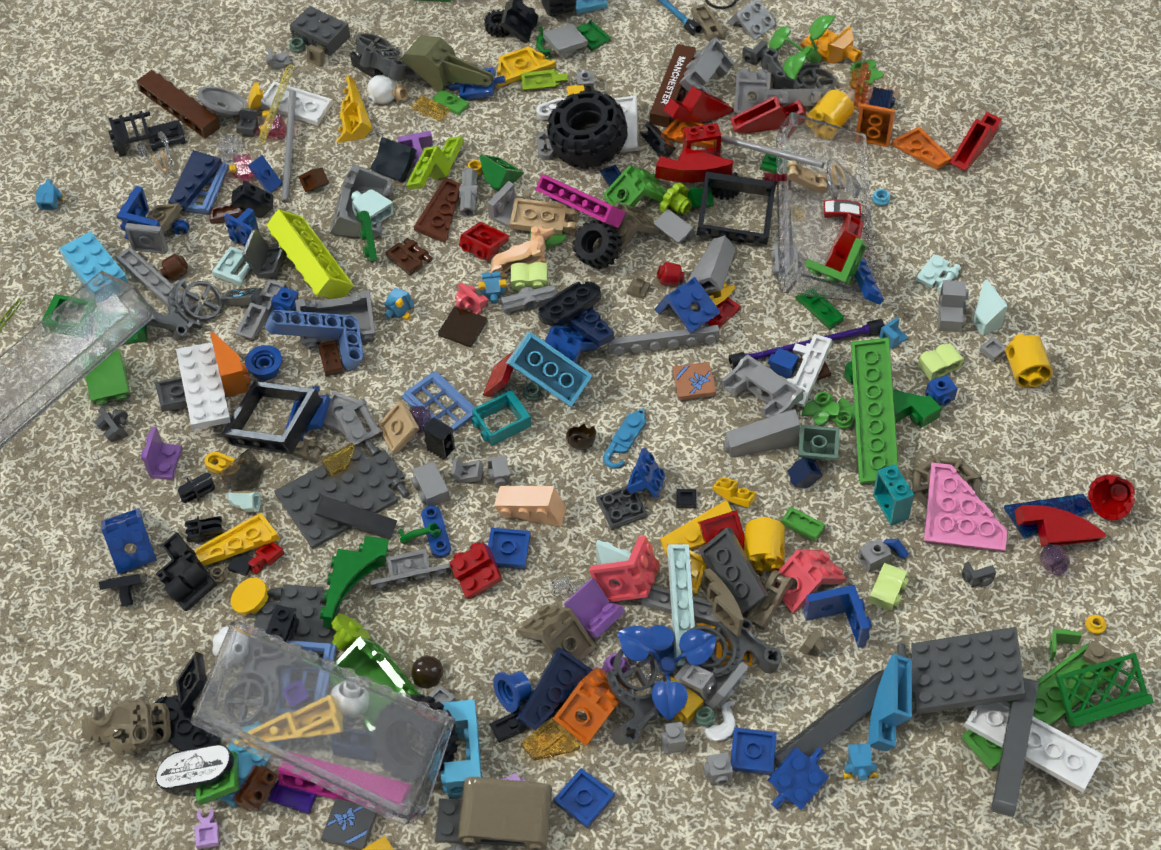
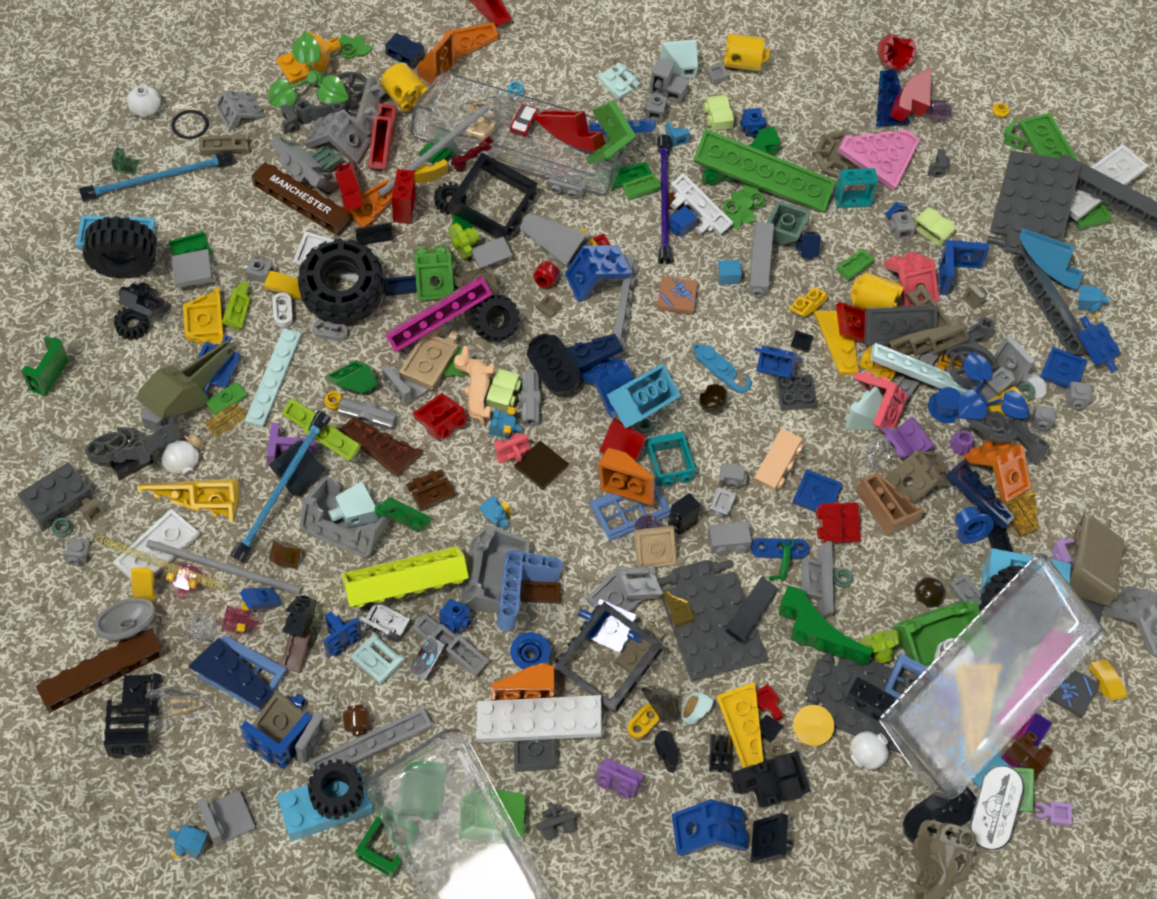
camera: 80 degrees left, 5 degrees up
(70, 210) = (226, 817): none -> light grey bracket
(92, 255) = (341, 805): none -> black tyre
(176, 320) = (425, 720): dark grey piece -> none
(191, 681) = (905, 791): black tile -> none
(247, 122) = (167, 603): dark grey bracket -> none
(419, 586) = (843, 572): none -> sand green plate
(426, 149) = (243, 548): none -> dark azure hose
(461, 380) = (625, 477): none -> orange slope
(483, 124) = (273, 378): none -> light aqua plate
(509, 608) = (887, 505): none -> medium nougat wedge
(539, 44) = (172, 293): green piece -> none
(584, 798) = (1081, 499): blue plate -> none
(692, 166) = (429, 212): red slope -> none
(721, 87) = (327, 159): none -> sand green plate
(739, 414) = (729, 272): none -> dark azure panel
(743, 159) = (426, 173): none -> yellow slope
(765, 384) = (709, 239): light grey bracket -> none
(812, 321) = (641, 186): none -> bright green plate
(859, 82) = (378, 51): clear orange plate -> none
(917, 308) = (655, 107): none -> light grey brick
(1097, 653) = (1035, 115): dark tan plate -> none
(1103, 708) = (1078, 134): green fence -> none

